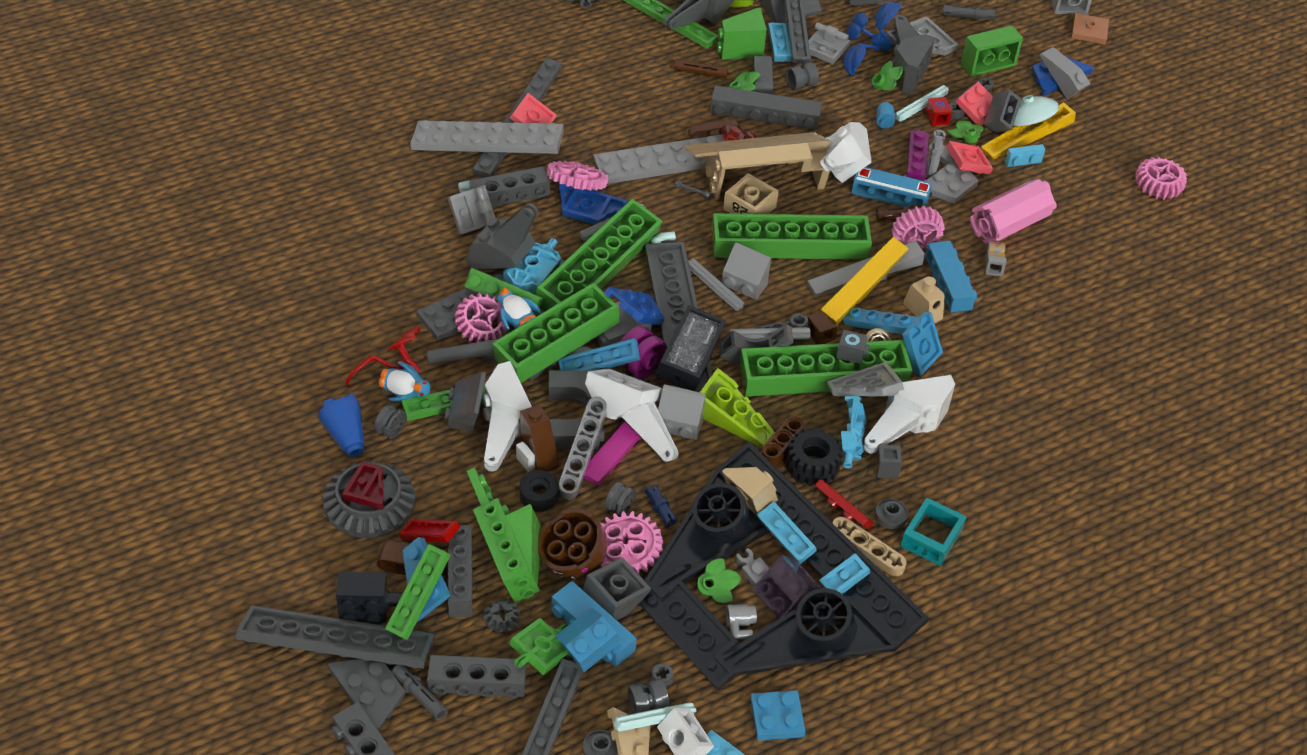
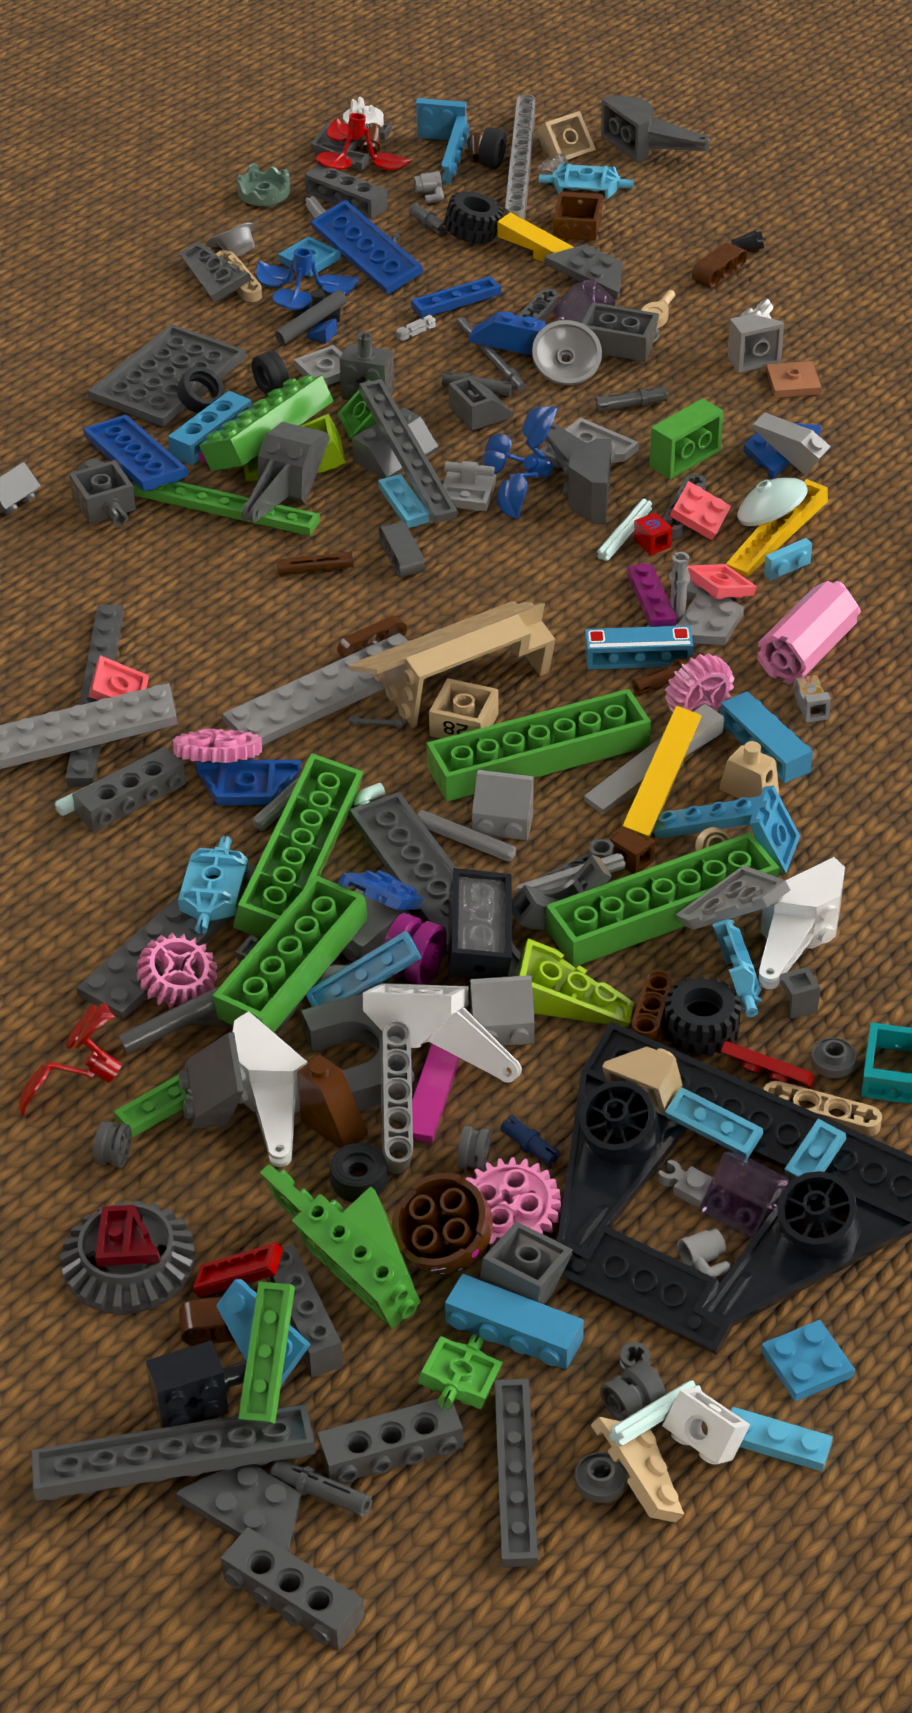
camera: 15 degrees left, 5 degrees down
(344, 423) = (50, 1166): blue cone -> none
(403, 383) = (108, 1087): animal -> none
(471, 209) = (94, 831): light grey plate -> none
(485, 283) = (203, 926): bright green plate -> none
(493, 619) = (380, 1362): dark grey gear -> none
(503, 241) = (165, 857): dark grey slope -> none
(515, 309) = (222, 943): animal -> none
(525, 456) = (319, 1133): white tile -> none
(588, 639) = (522, 1339): dark azure slope -> none
(721, 580) = (656, 1212): bright green plate -> none
(734, 133) = (403, 633): clear red plate -> none
(742, 36) = (355, 505): bright green slope -> none
(745, 81) = (382, 566): bright green plate -> none
(766, 107) = (425, 589): dark grey brick -> none
(802, 76) = (455, 536): dark grey wheel -> none
(847, 151) = (567, 614): white slope -> none
(852, 347) = (692, 859): dark grey brick -> none
(885, 115) = (586, 557): dark azure brick -> none
(887, 77) = (567, 507): bright green plate -> none
(967, 131) = (704, 550): bright green plate -> none
(1002, 111) = (737, 510): dark grey brick -> none

